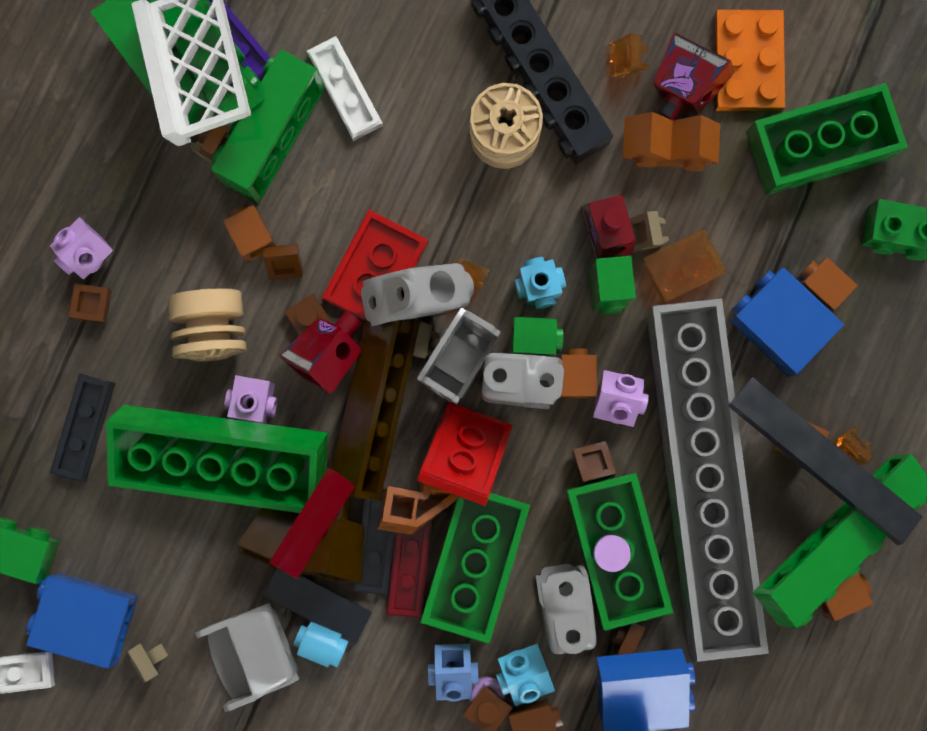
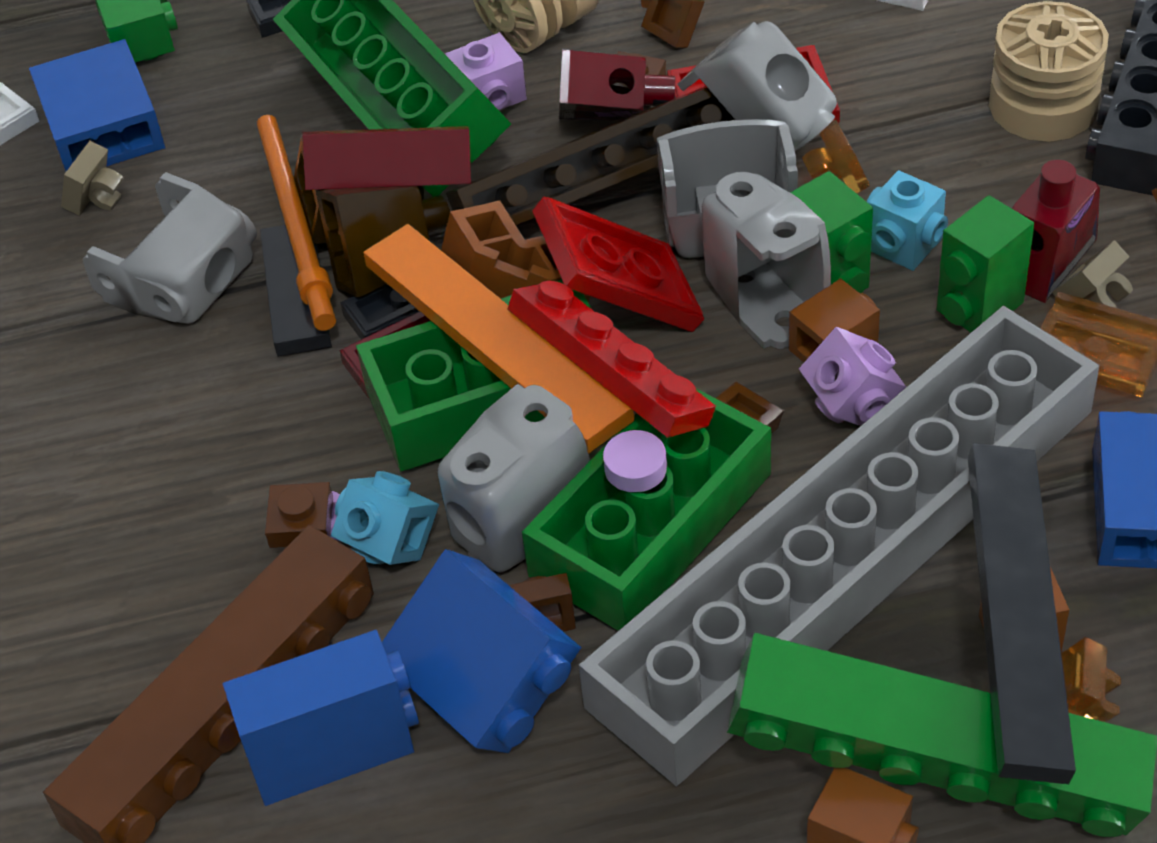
camera: 60 degrees right, 35 degrees down
(320, 645) = (243, 310): medium azure brick -> none
(337, 601) = (312, 279): none -> orange bar
(453, 672) = (320, 441): medium blue brick -> none
(476, 556) = (491, 332): none -> orange tile
(543, 517) = (612, 358): none -> red plate

